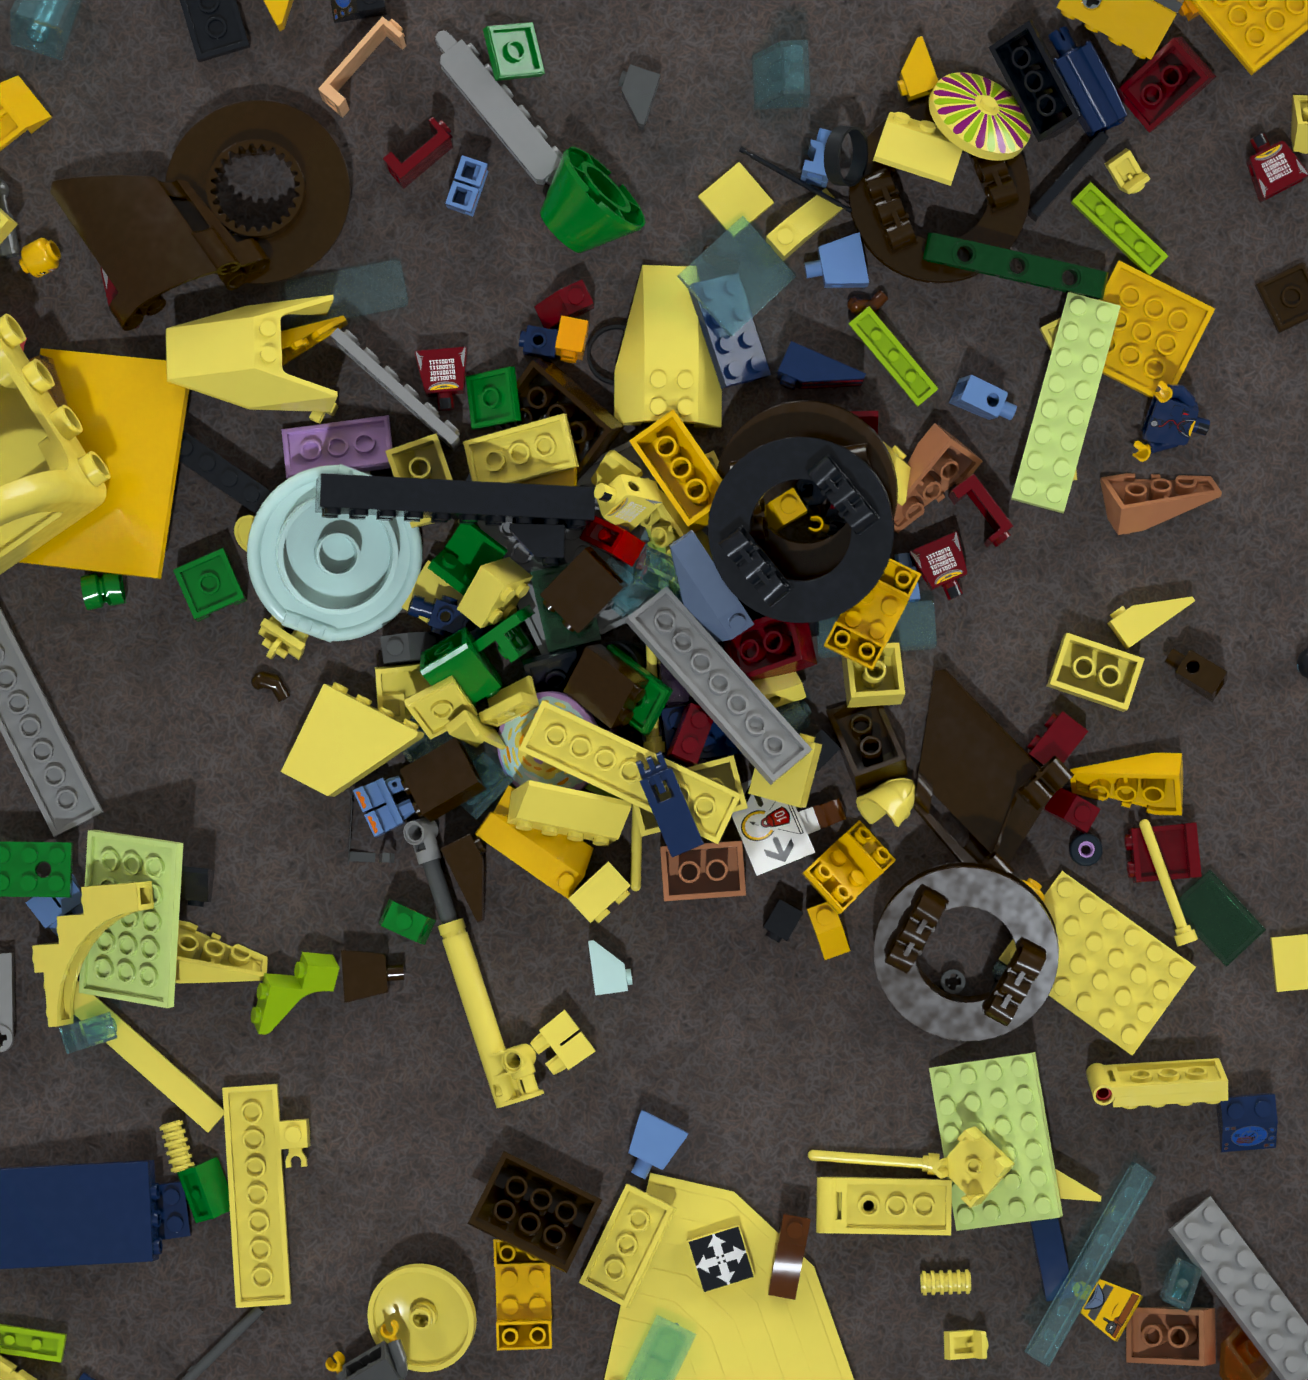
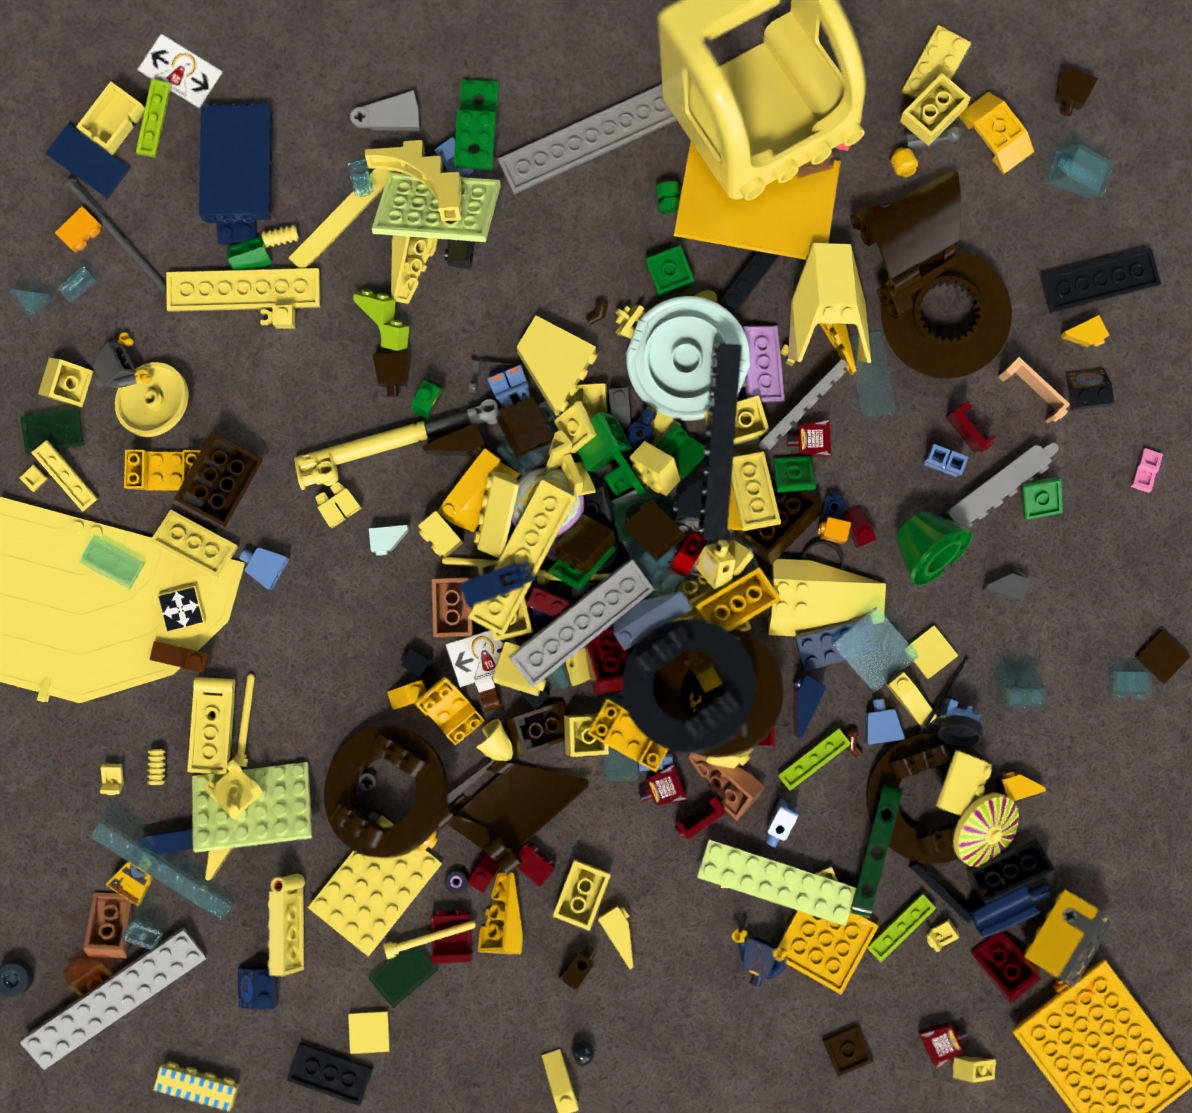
camera: 90 degrees right, 0 degrees up
(1143, 503) = (702, 936): nougat wedge -> none

